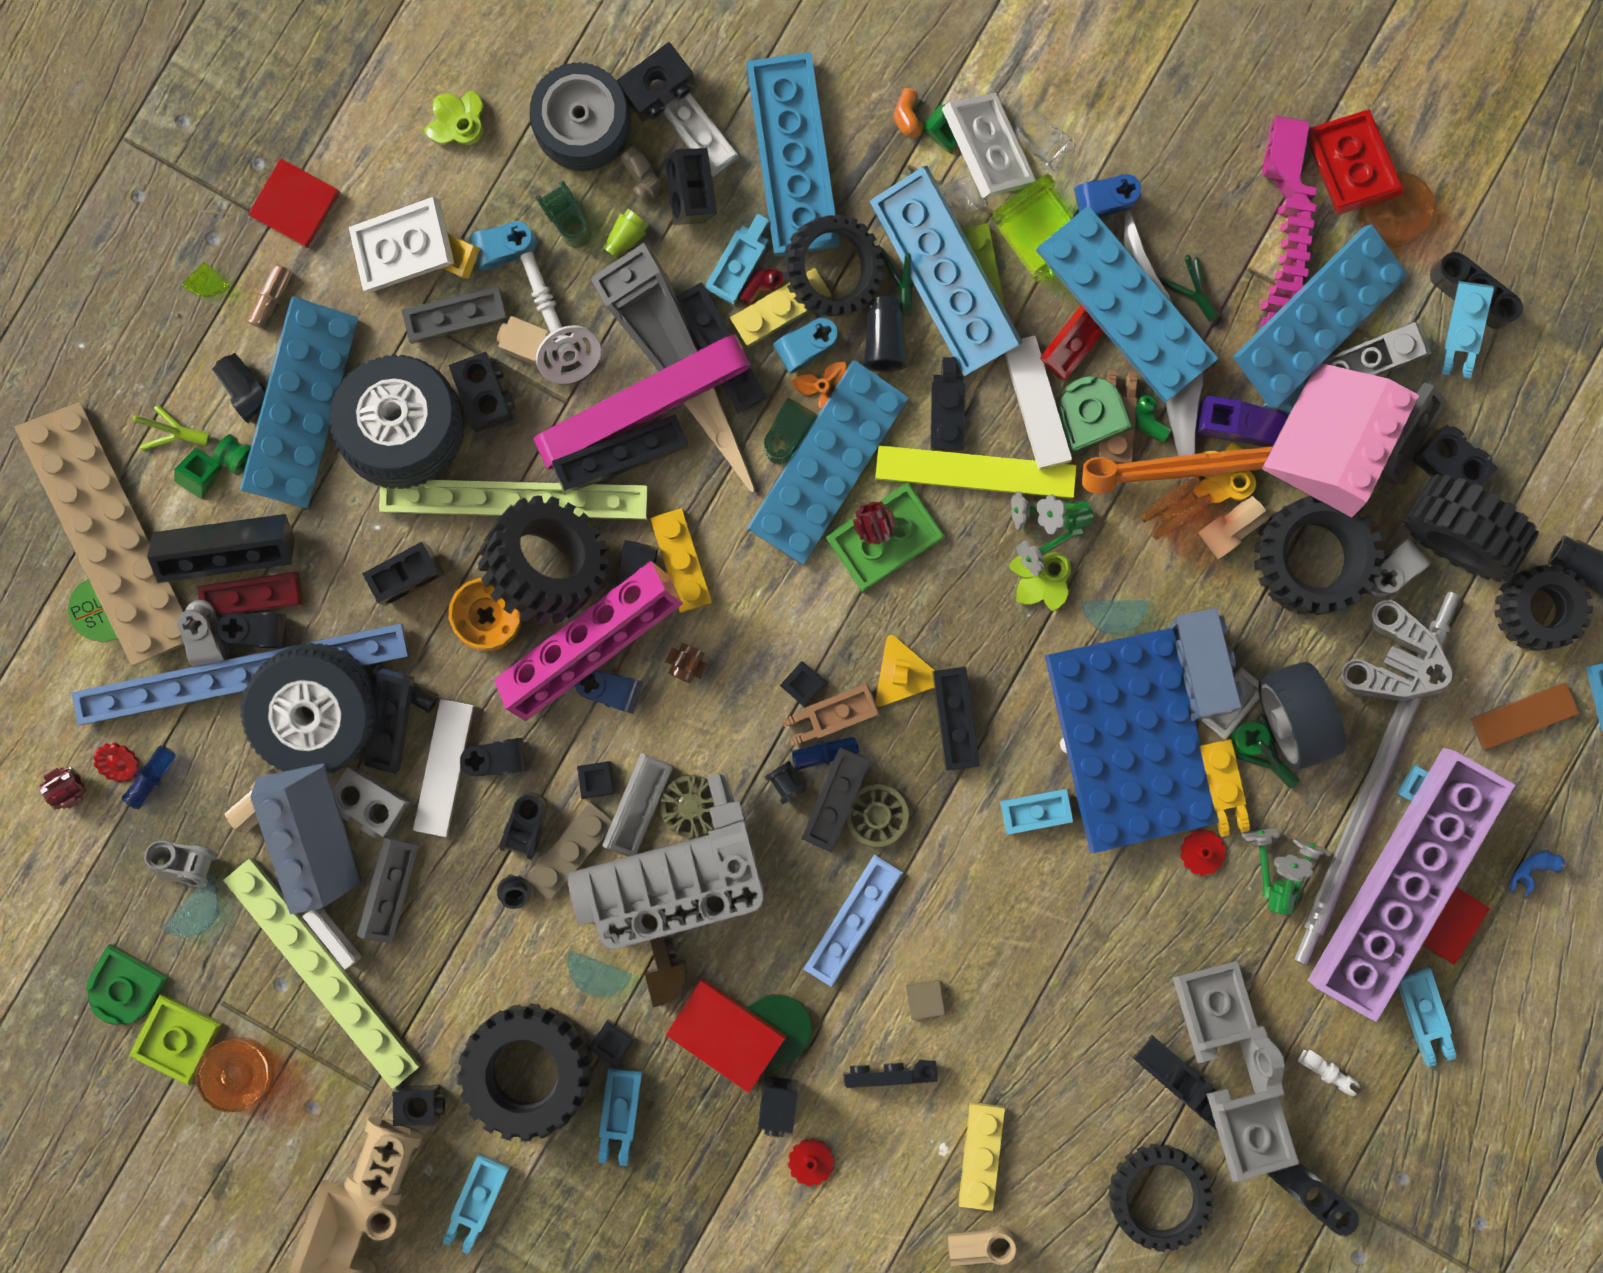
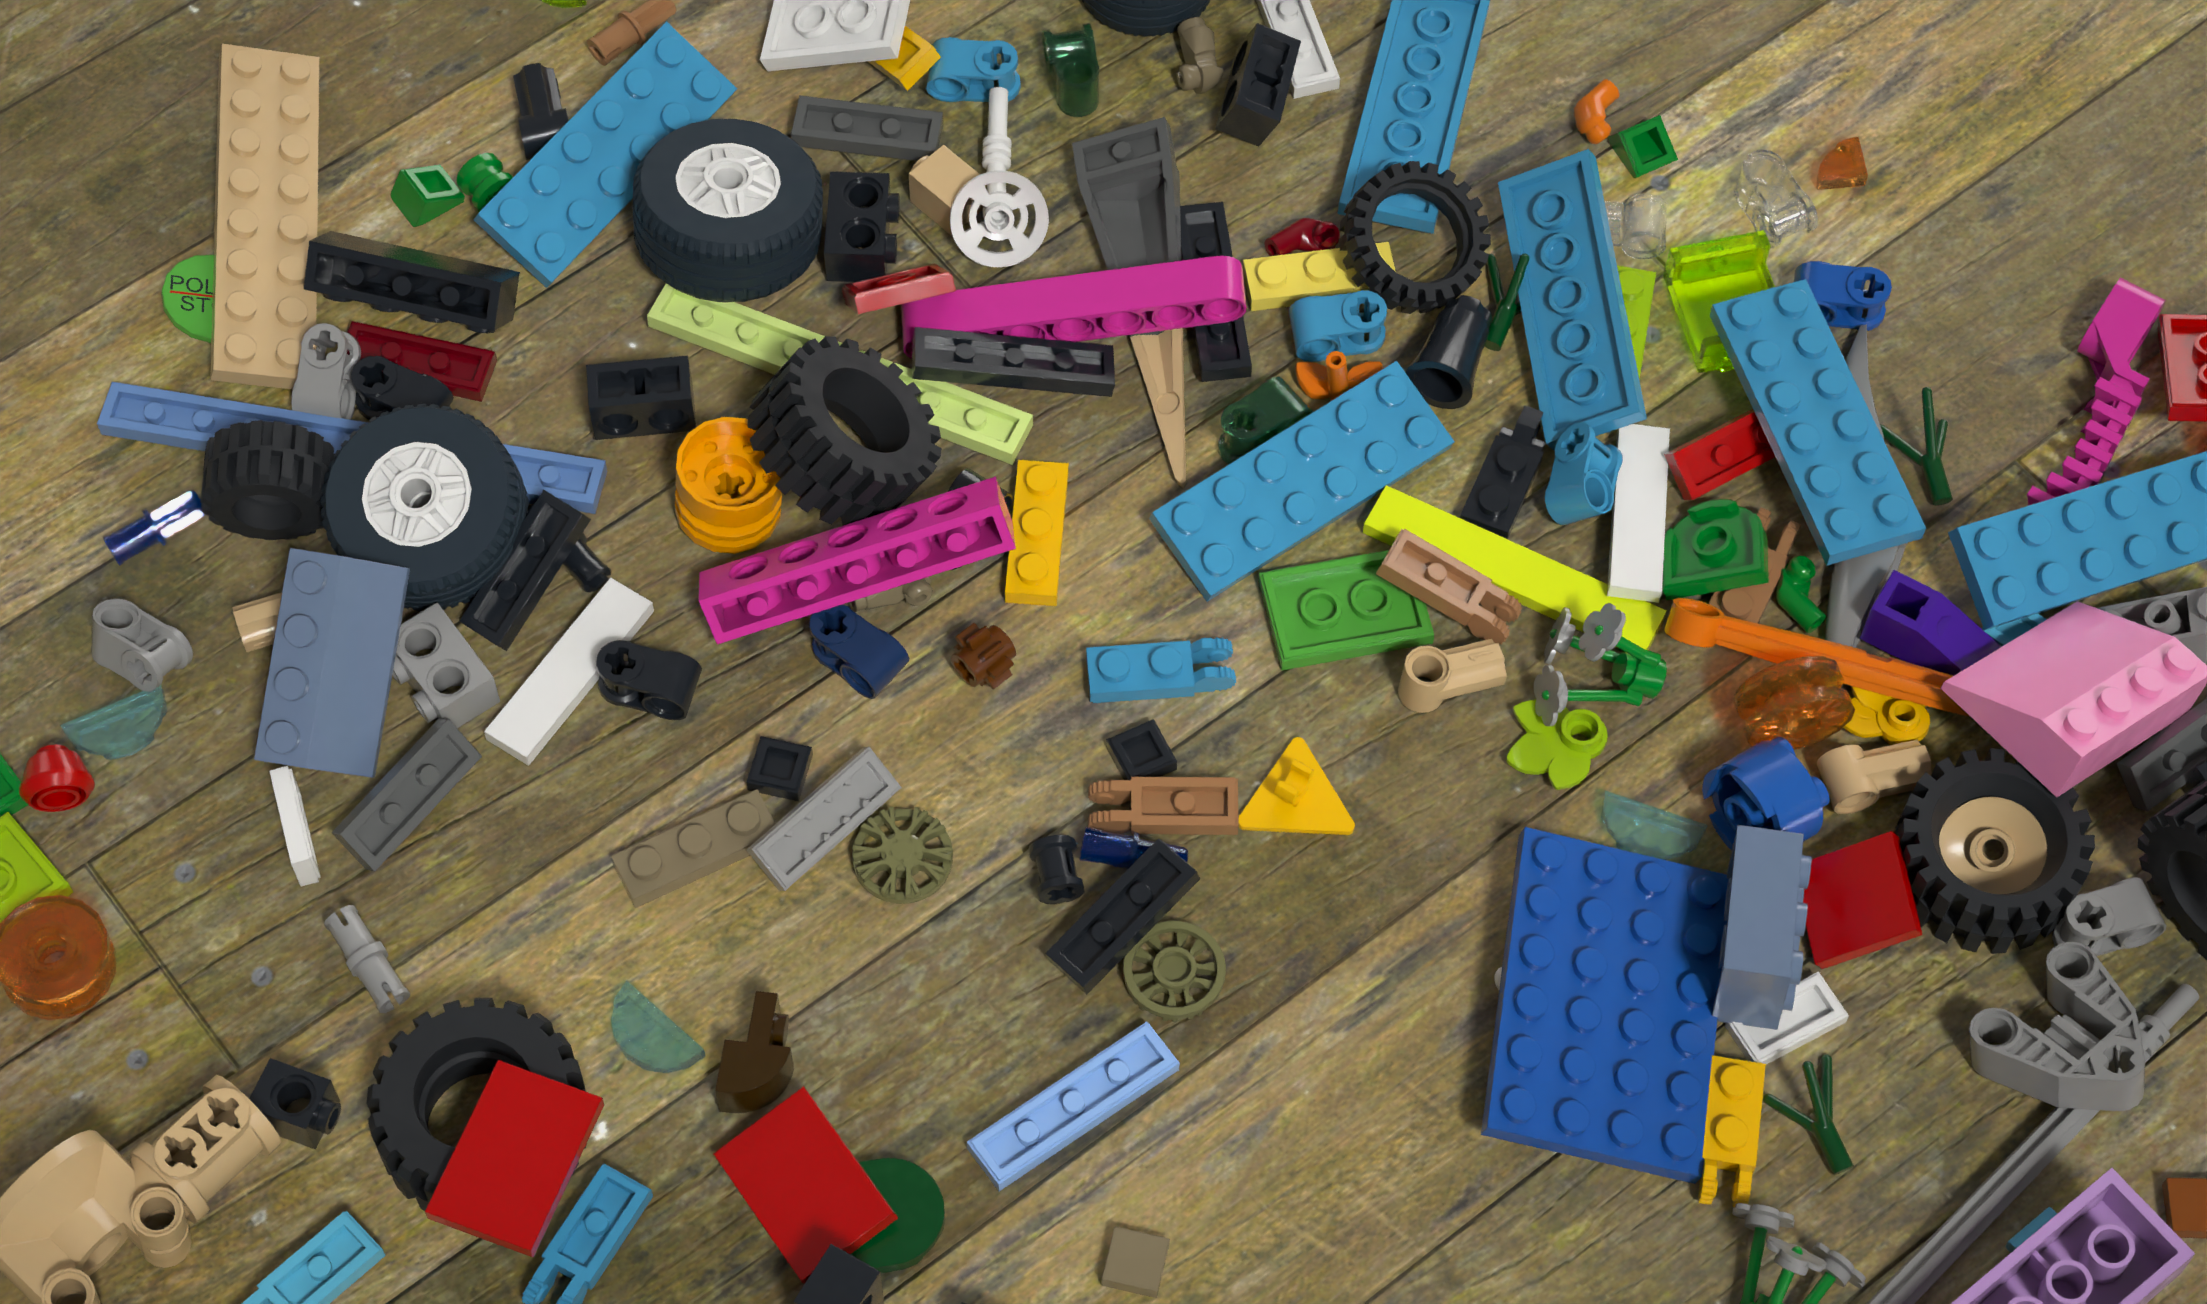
camera: 25 degrees right, 25 degrees down
(63, 788) = (31, 493): dark red gear -> none
(116, 762) = (121, 491): red piece -> none
(177, 431) = (429, 138): lime plant -> none
(177, 965) = (55, 780): none -> red cone
(203, 731) = (265, 479): none -> black tyre
(322, 973) = (253, 877): yellowish green plate -> none
(414, 999) = (367, 959): none -> light grey pin
(513, 891) = (587, 863): black plate -> none
(524, 827) = (642, 791): black piece -> none
(527, 433) = (898, 288): none -> tile
(564, 1109) = (515, 1158): none -> red tile
(611, 1043) = (627, 1138): black tile -> none
(625, 233) = (1145, 107): lime cone -> none
(672, 877) = (830, 931): light grey piece -> none
(738, 261) = (1286, 197): medium azure hinge -> none
(788, 626) = (1157, 670): none -> dark azure hinge
(874, 523) = (1338, 566): dark red gear -> none
(941, 504) = (1449, 586): none -> medium nougat hinge
(955, 718) = (1349, 877): black plate -> none
(967, 559) = (1452, 672): none -> tan piece
(988, 145) = (1692, 172): white plate -> none
(998, 397) = (1582, 476): none -> dark azure piece
(1036, 811) = (1421, 1052): medium azure plate -> none
(1076, 92) = (1843, 166): none -> clear orange tile
(1180, 577) = (1765, 790): none -> blue brick
(1202, 852) = (1661, 1217): red piece -> none
(1243, 737) = (1790, 1083): green wheel -> none
(1253, 618) = (1859, 901): none -> red tile
(1302, 715) = (1886, 1046): black wheel -> none
(1320, 564) = (2000, 819): none -> tan dish

